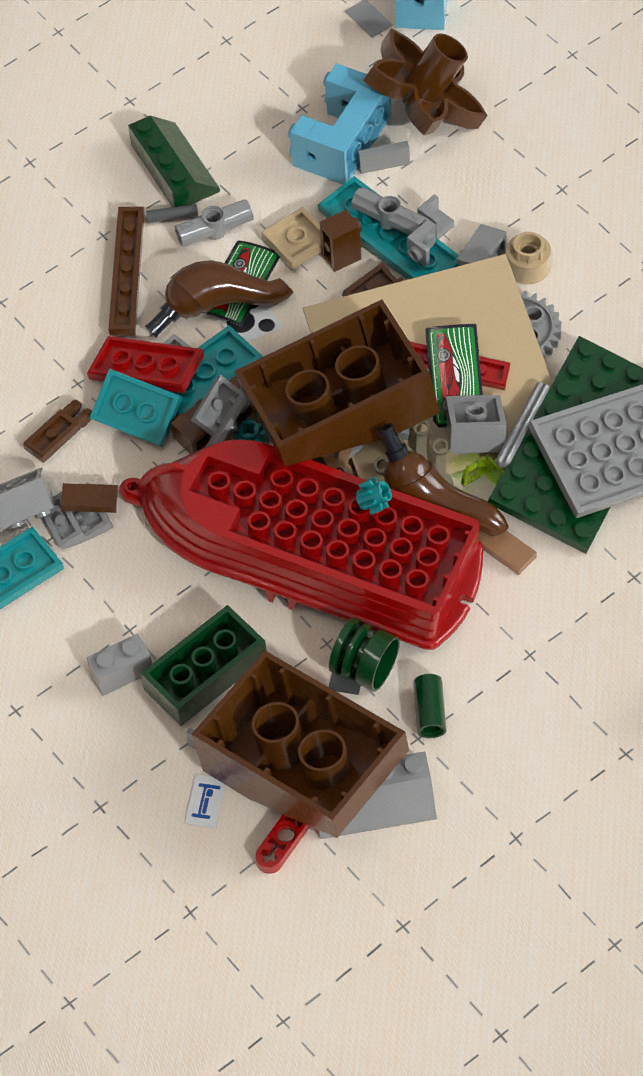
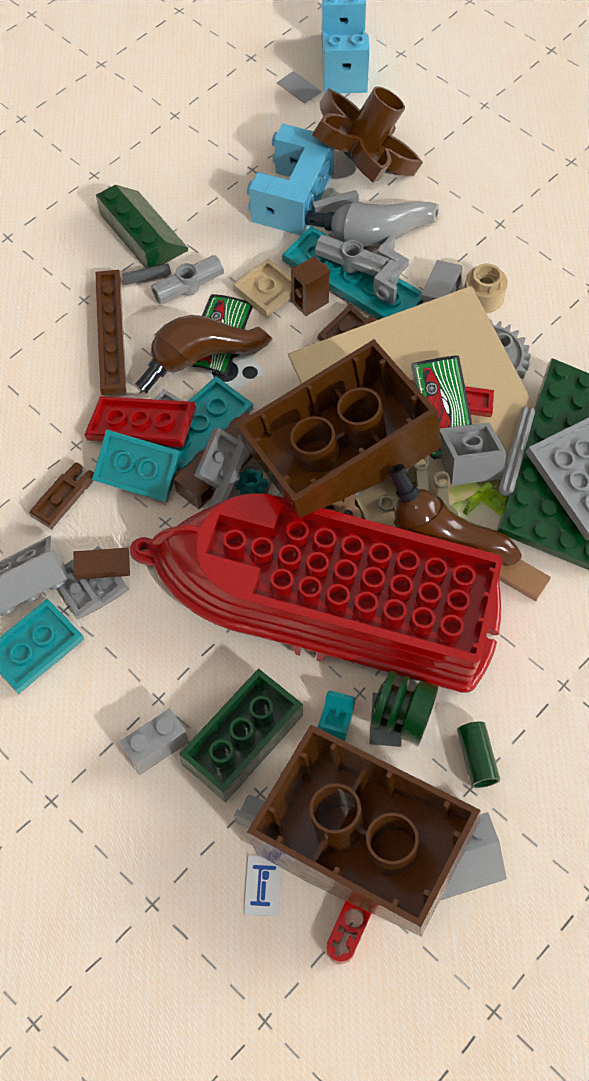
camera: 10 degrees left, 5 degrees up
(301, 653) = (337, 714): none -> teal bracket
(373, 495) = (395, 541): teal gear -> none
(418, 179) = (374, 222): none -> light grey animal

